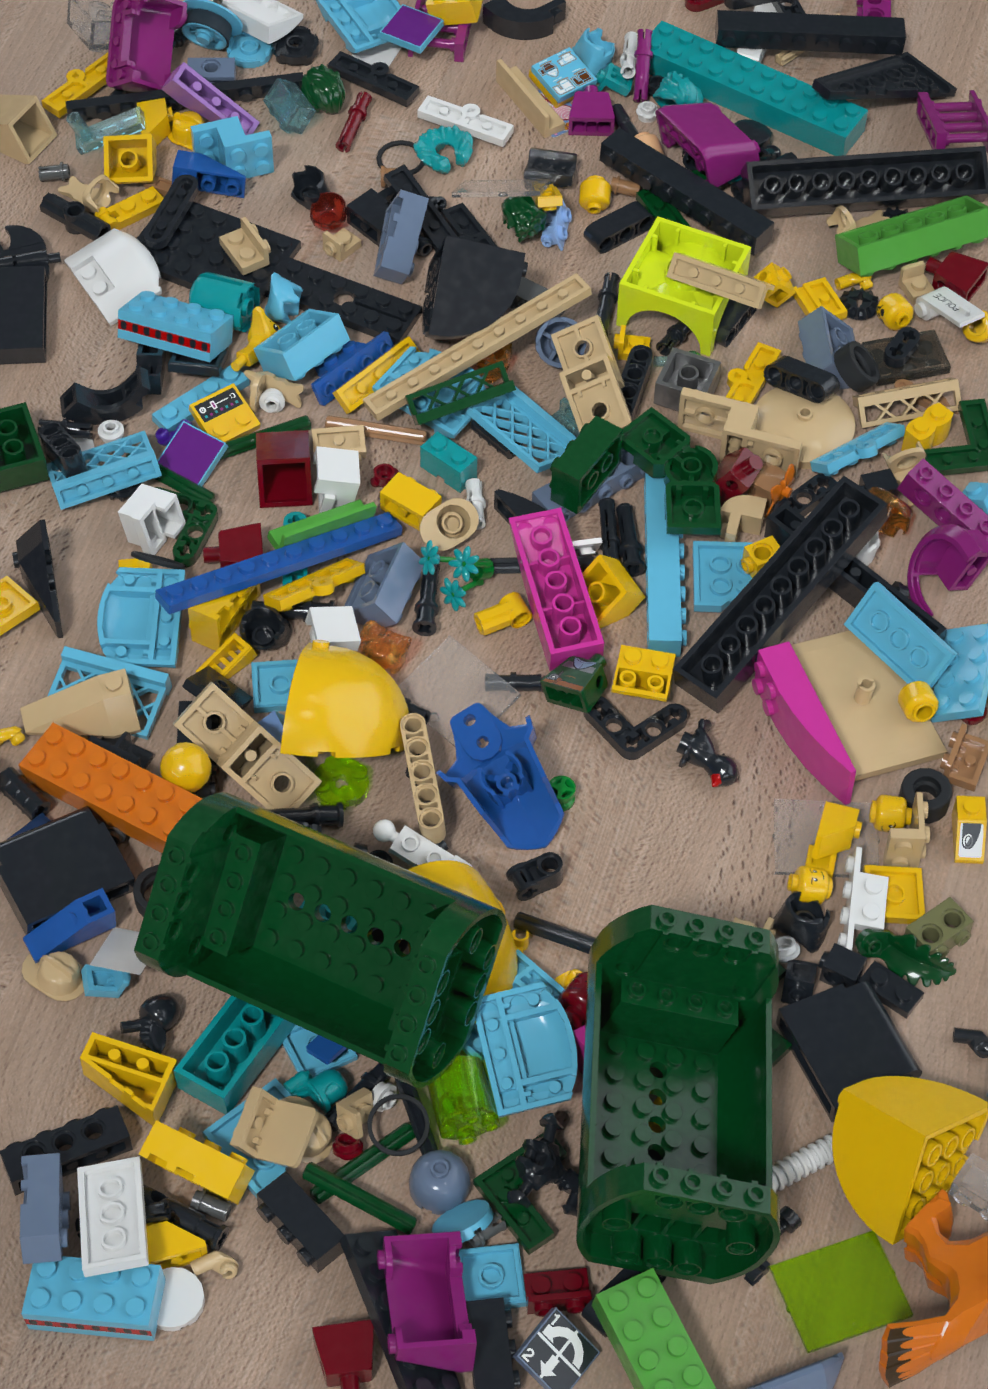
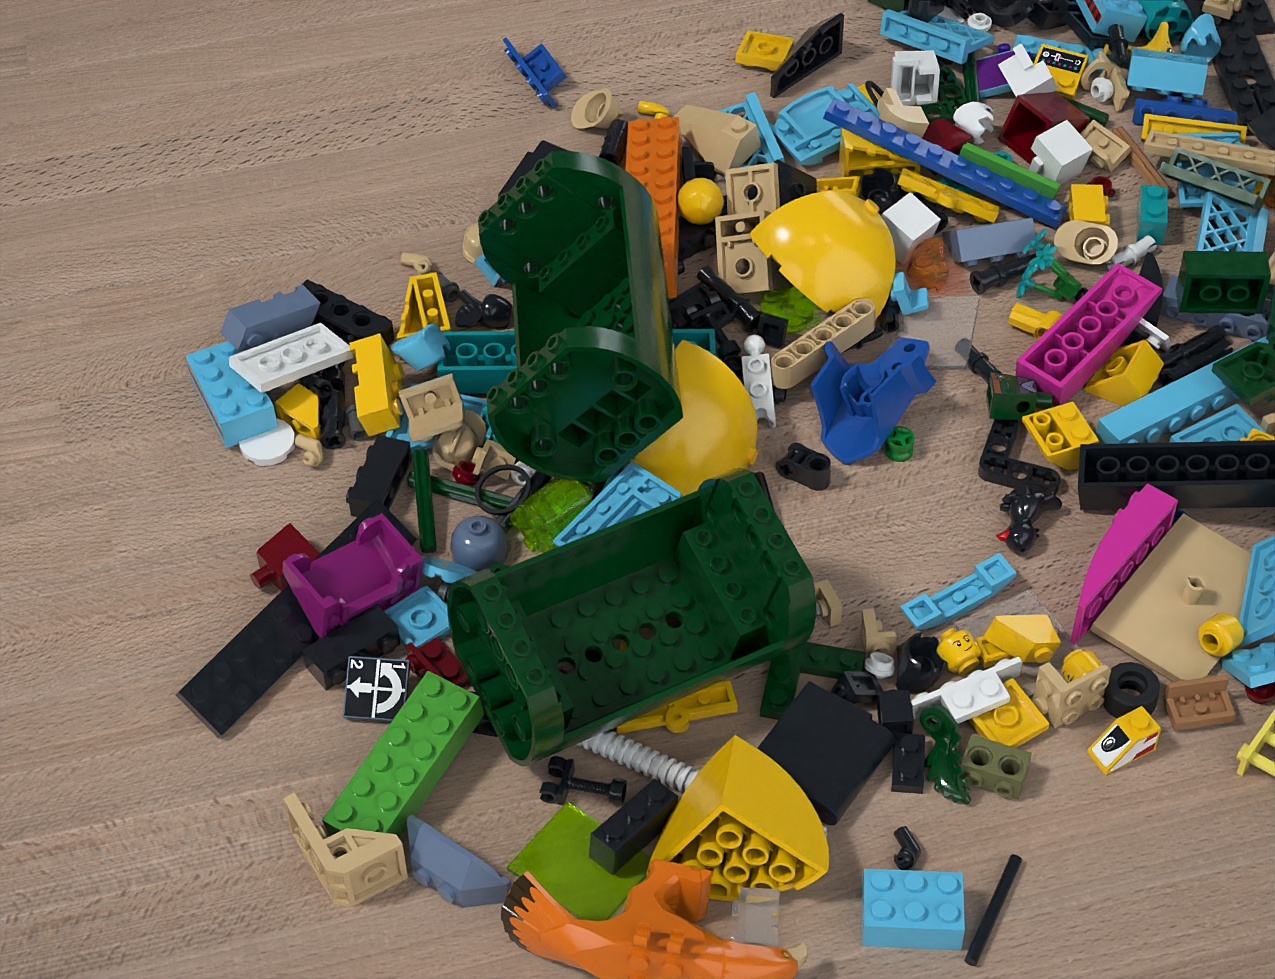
camera: 60 degrees right, 5 degrees down
(41, 1042) = (419, 262): none -> tan arm
(81, 1037) = (449, 289): none -> dark grey pin
(187, 1095) = (422, 347): none -> medium azure hair
(200, 560) = (904, 117): none -> tan brick
(235, 442) = (1025, 76): none -> white plate
(241, 510) = (972, 119): none -> white hair
(245, 355) = (1118, 44): none -> black axle
(362, 807) = (772, 329): none -> black plate
(412, 683) = (908, 300): none -> medium azure bracket
(751, 848) = (960, 597): none -> medium azure slope
(840, 1226) = (632, 827): none -> black brick

